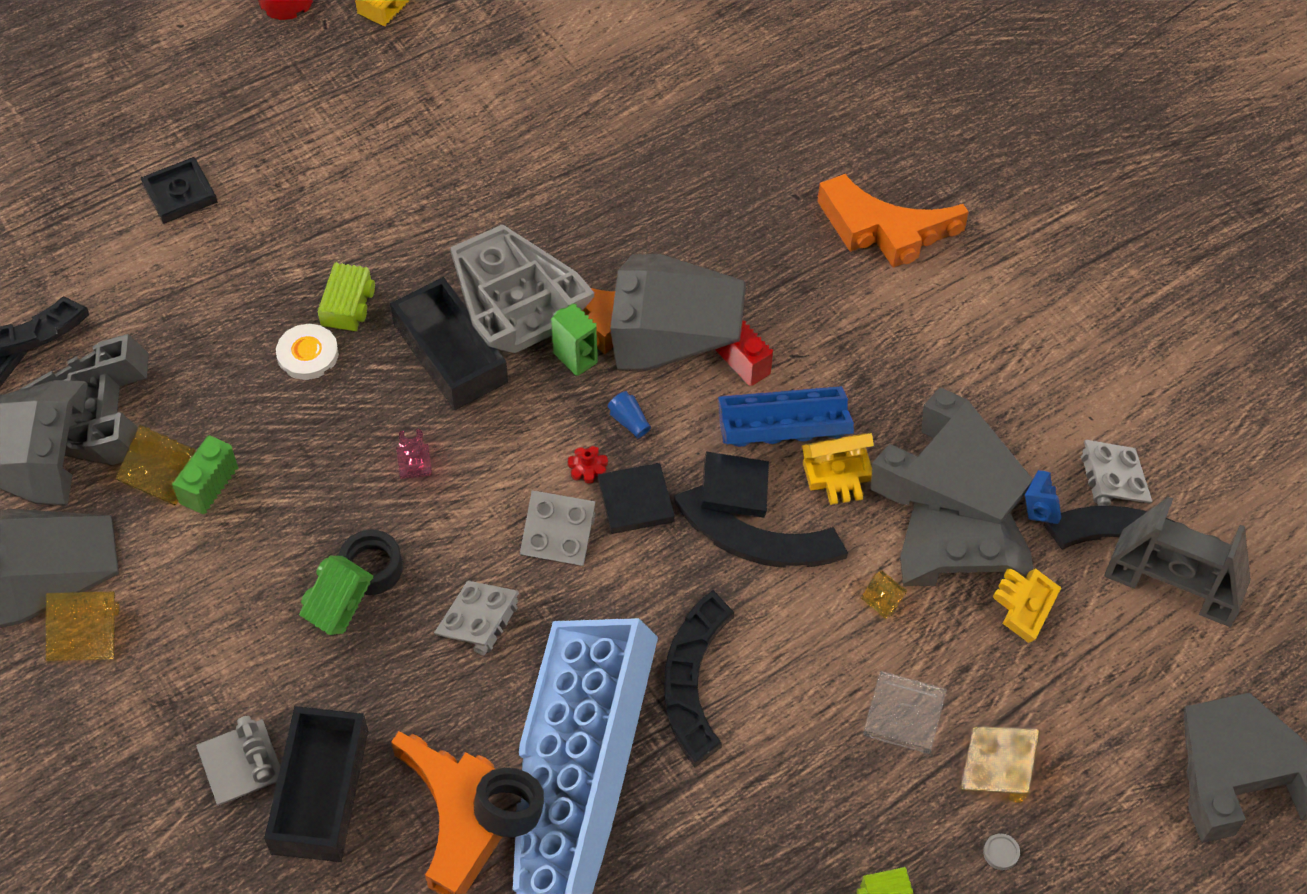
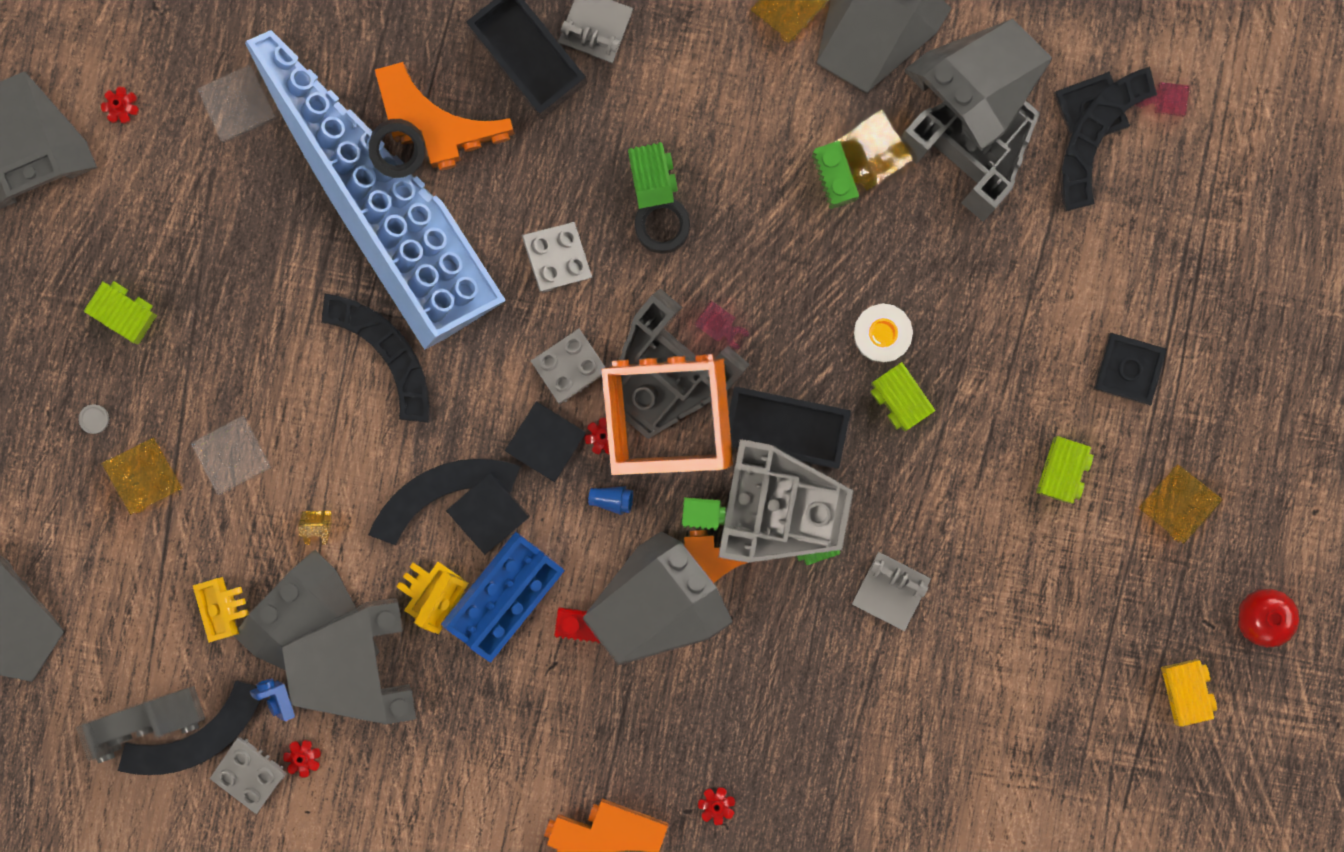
camera: 140 degrees right, 30 degrees up
(252, 89) = (1180, 504): none -> clear yellow hinge
(298, 167) = (1064, 470): none -> lime brick
(495, 458) = (663, 399): none -> dark grey wedge
(499, 198) = (891, 591): none -> light grey hinge
(555, 382) = (616, 420): none -> orange window
(771, 181) = (716, 799): none -> red plant
(1060, 452) = (308, 756): none -> red plant

